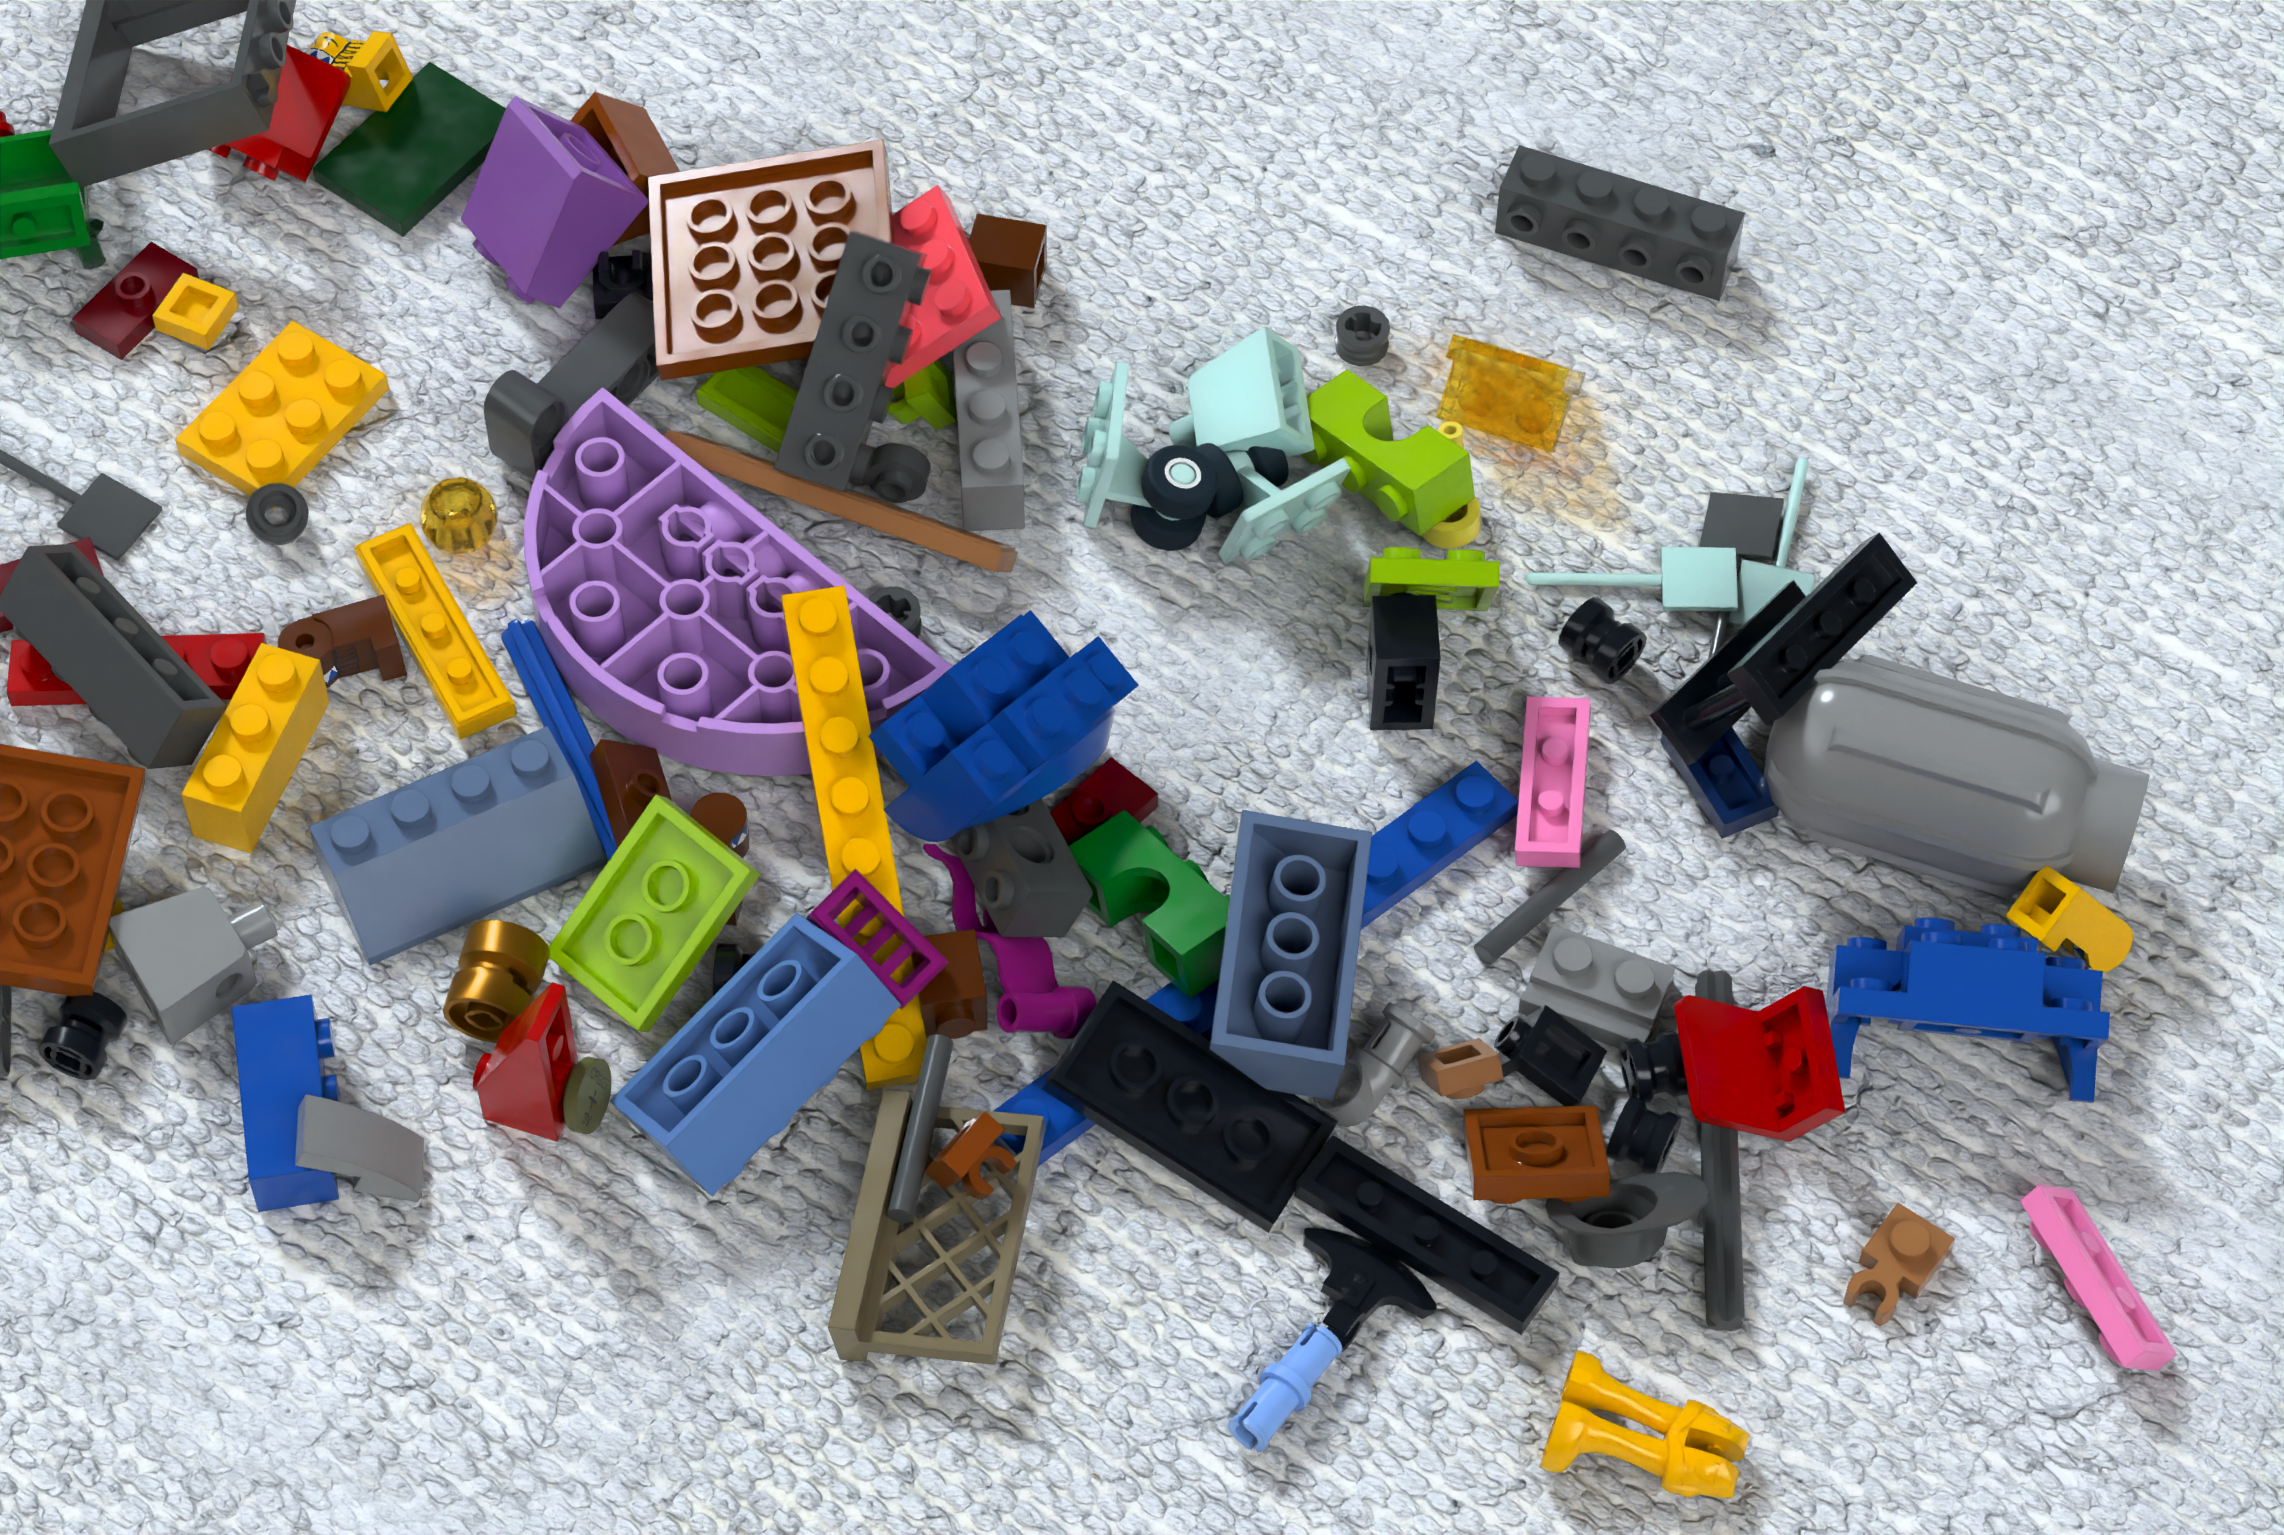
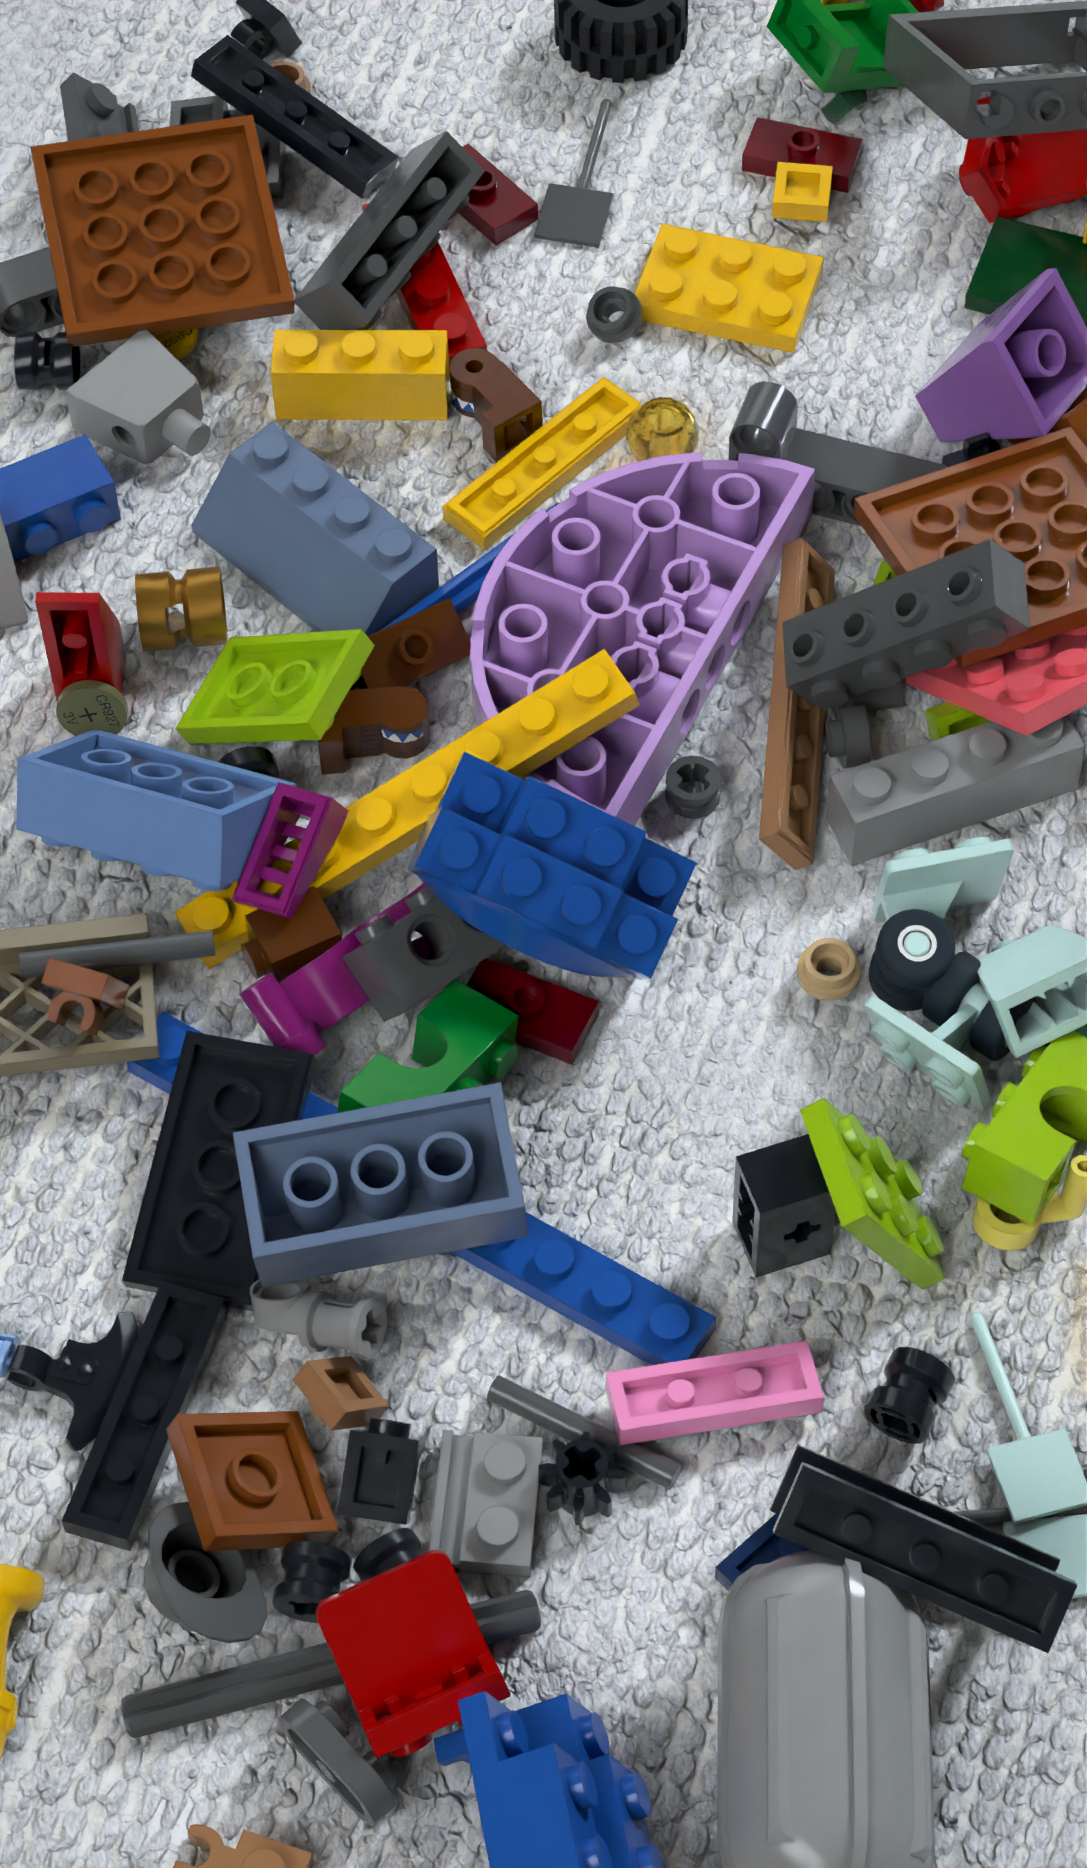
camera: 75 degrees right, 0 degrees up
(1142, 559) = (831, 955): none -> tan plate
(1606, 902) = (585, 1461): none -> black gear
(1831, 1155) = (358, 1780): none -> dark grey plate

